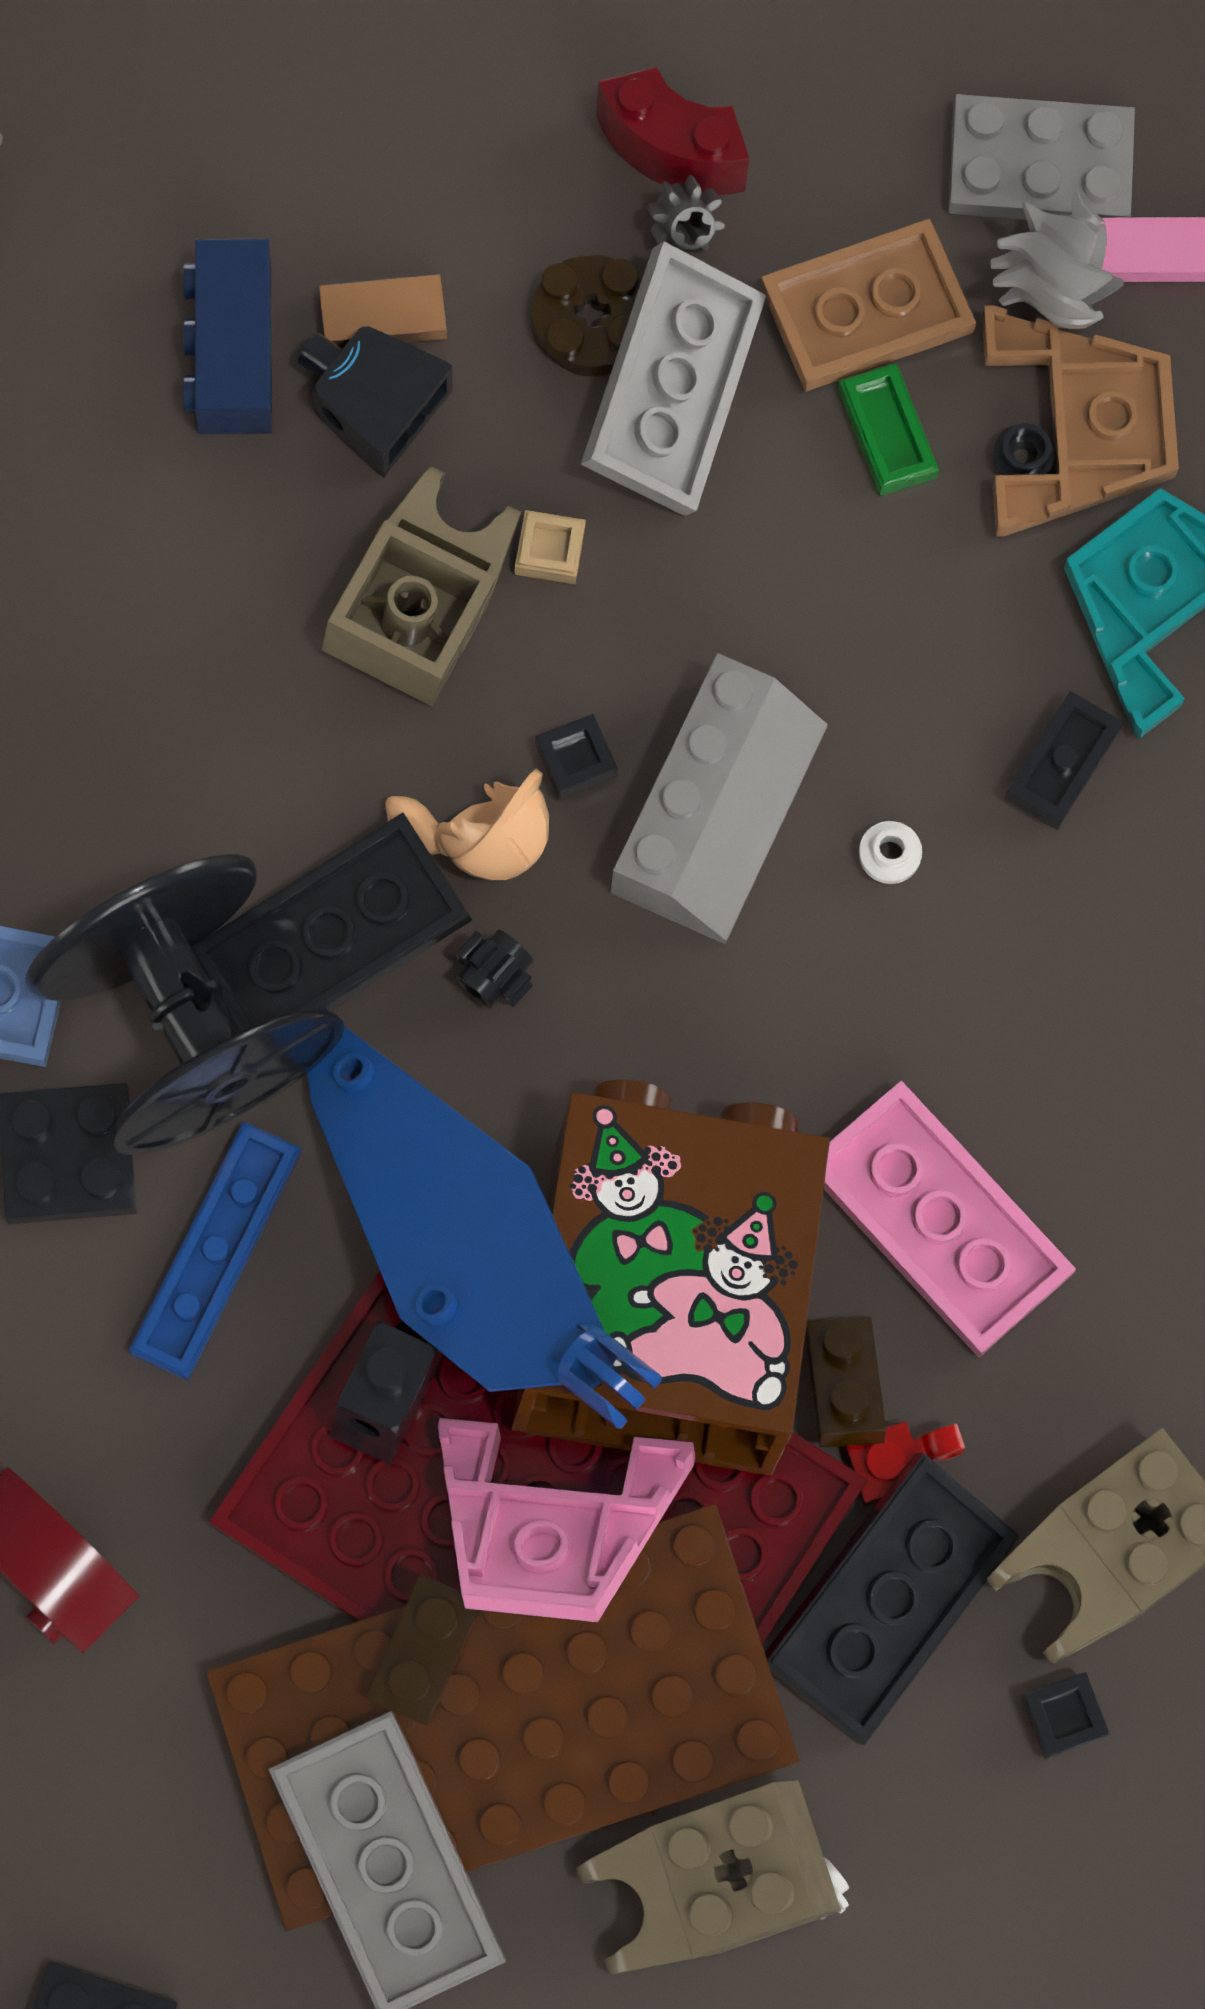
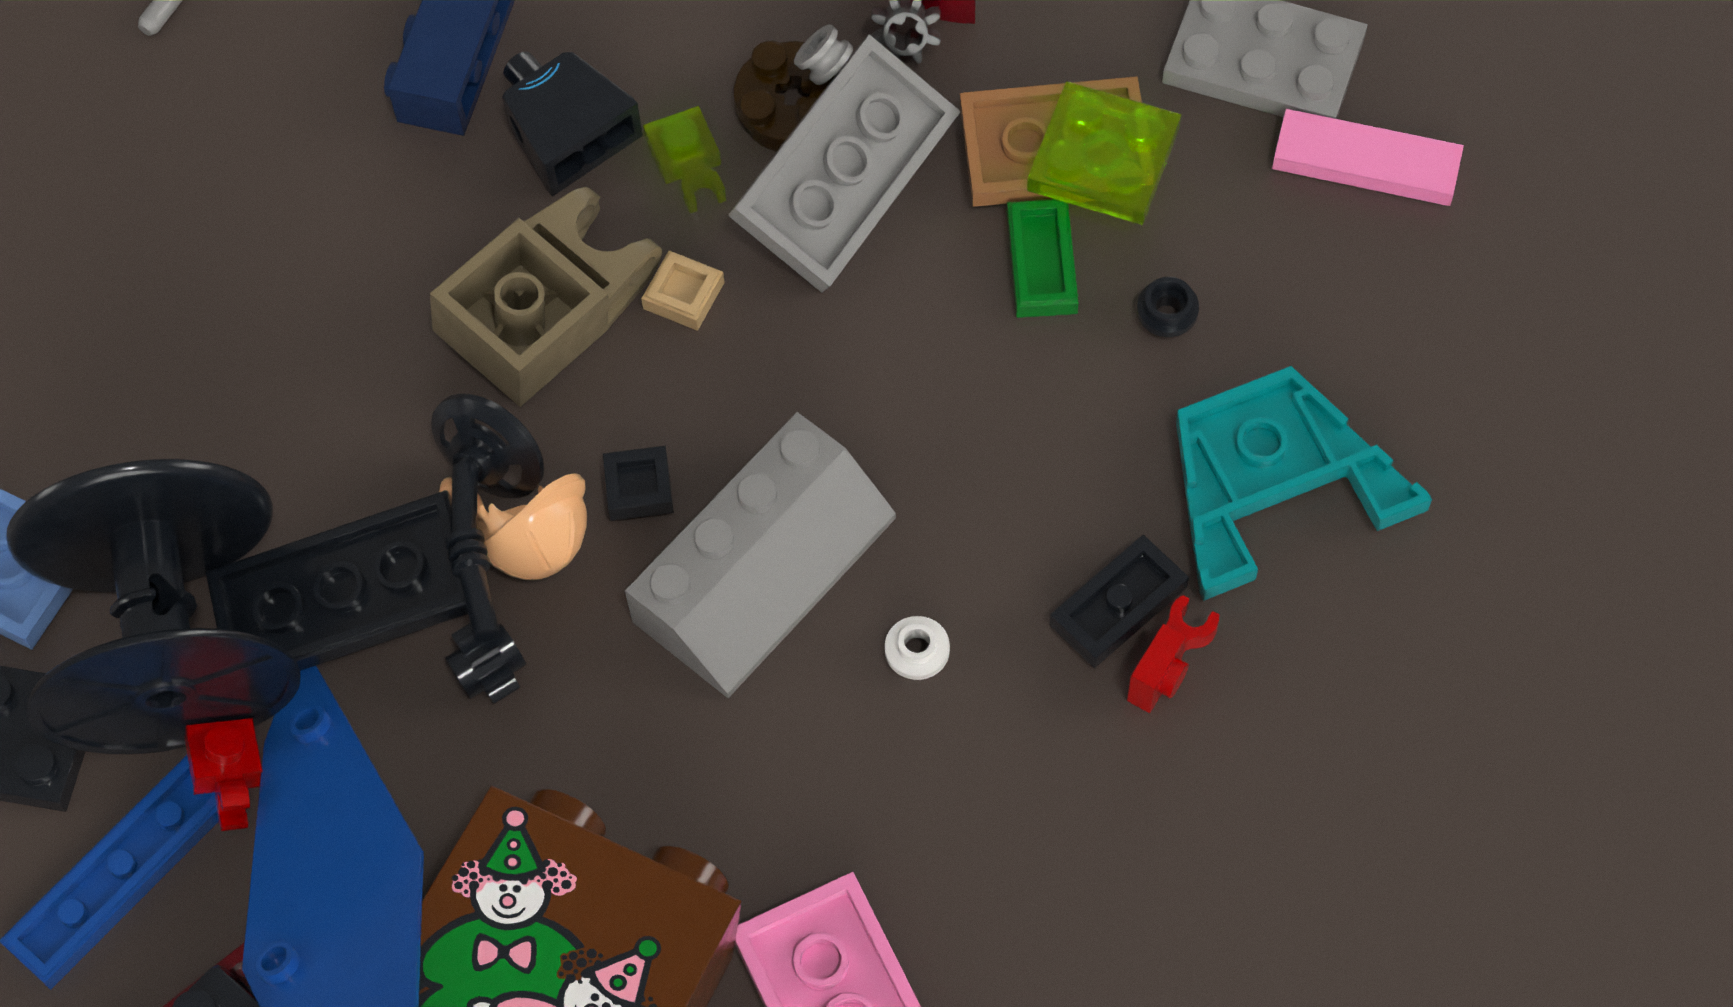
camera: 25 degrees right, 10 degrees down
(285, 1129) = (226, 762): none -> red plate
(399, 307) = (619, 52): medium nougat tile -> none
(427, 777) = (481, 462): none -> black dish
(503, 399) = (686, 152): none -> clear neon green plate
(622, 271) = (823, 54): none -> light grey bush
(924, 310) = (1104, 152): none -> clear neon green plate
(1058, 265) = (1246, 138): light grey hair -> none
(1107, 419) = (1258, 296): medium nougat wing -> none
(1123, 816) = (1162, 664): none -> red plate

